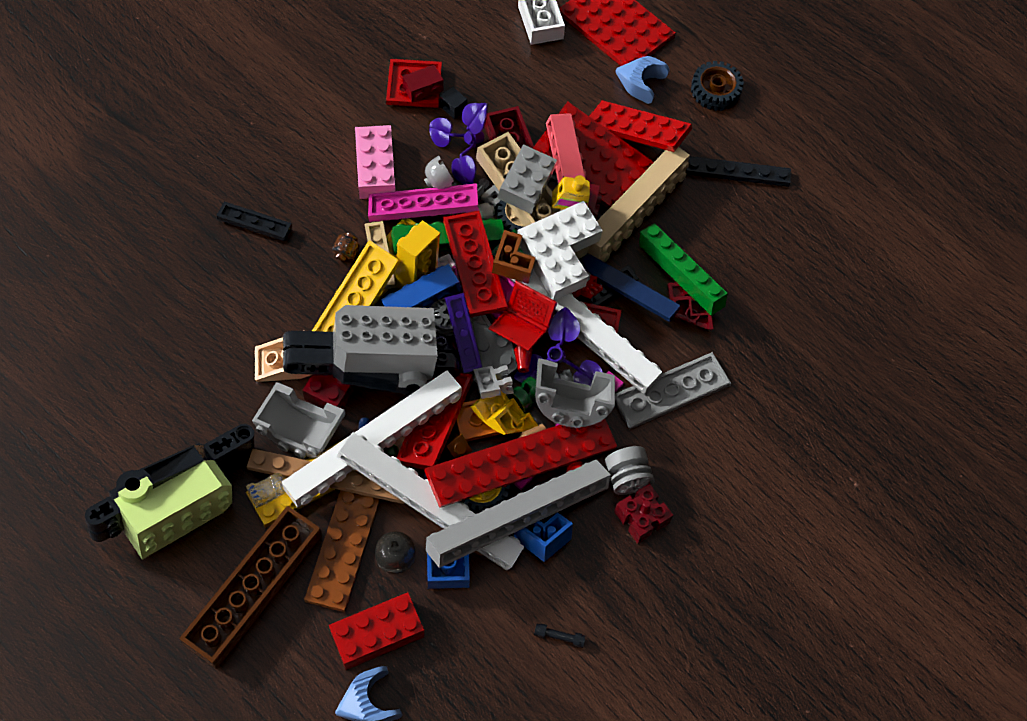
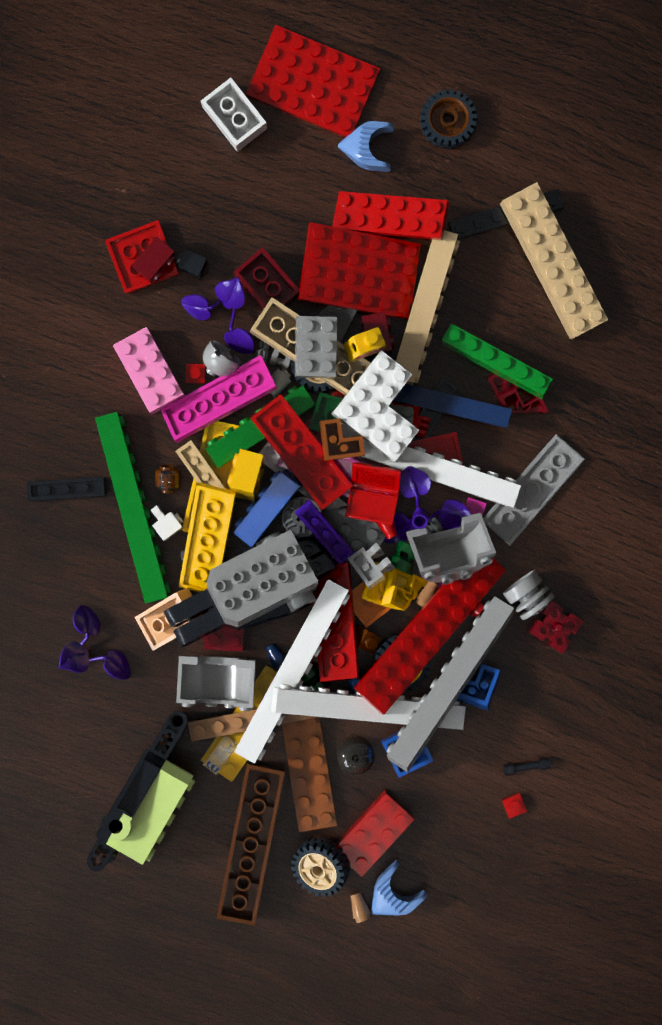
camera: 15 degrees left, 25 degrees up
(182, 334) = (76, 658): none -> dark purple plant
(303, 255) = (132, 507): none -> green brick
(307, 651) = (320, 867): none -> wheel
(325, 281) = (167, 524): none -> white brick
(326, 704) = (359, 908): none -> medium nougat cone
(413, 181) = (195, 373): none -> red plate
(530, 669) = (514, 805): none -> red plate
(565, 146) = (334, 286): coral brick -> none
(765, 215) = (553, 261): none -> tan brick

